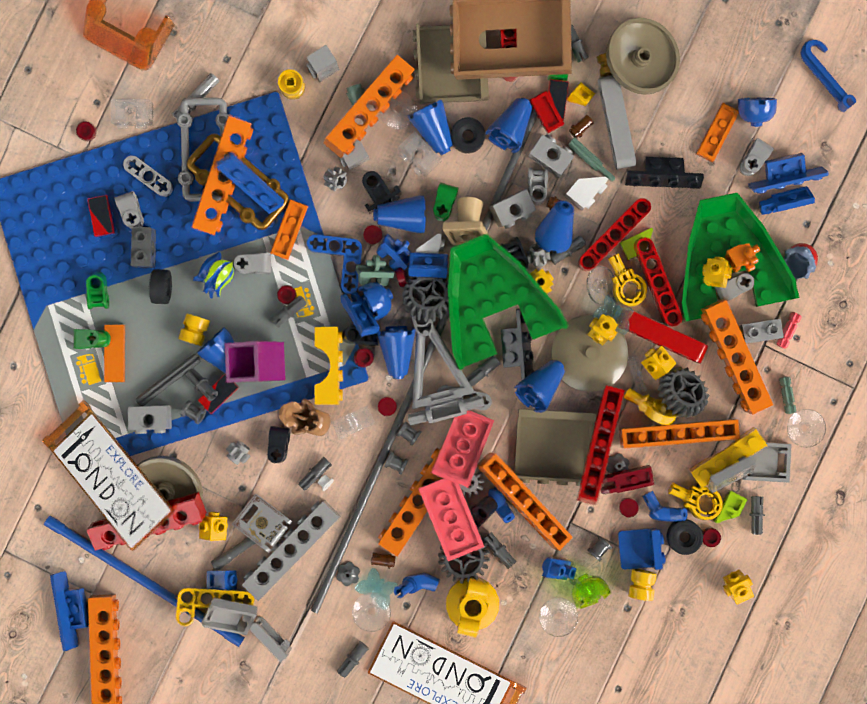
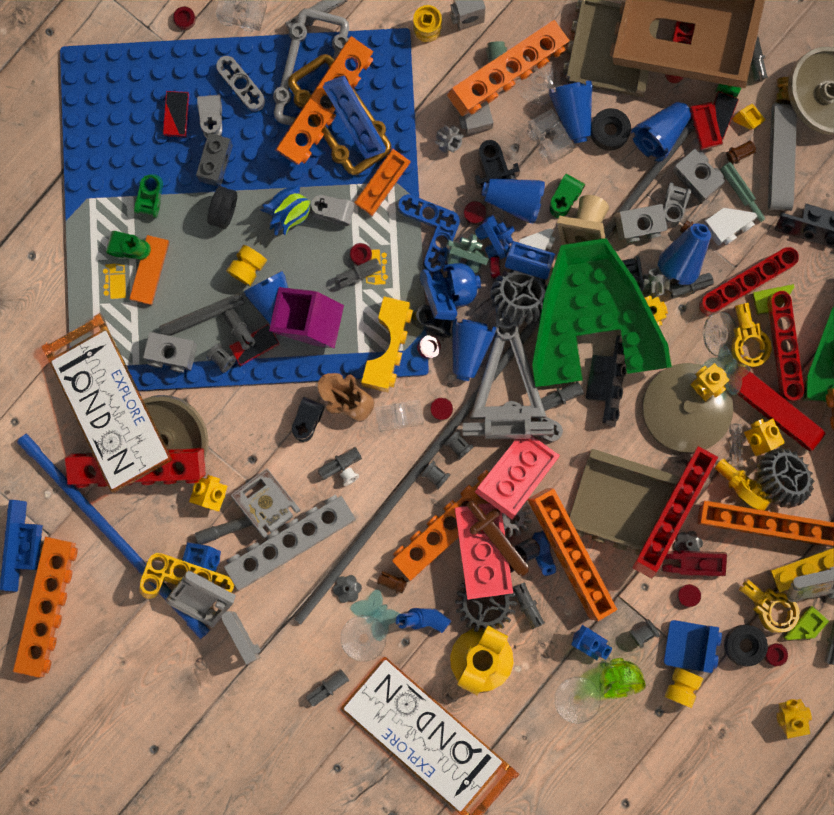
camera: 10 degrees right, 5 degrees down
(238, 452) = (259, 416): light grey gear -> none
(460, 505) = (486, 523): none -> reddish brown sword
(540, 386) = (622, 428): blue cone -> none
(664, 513) = (727, 611): blue arm -> none

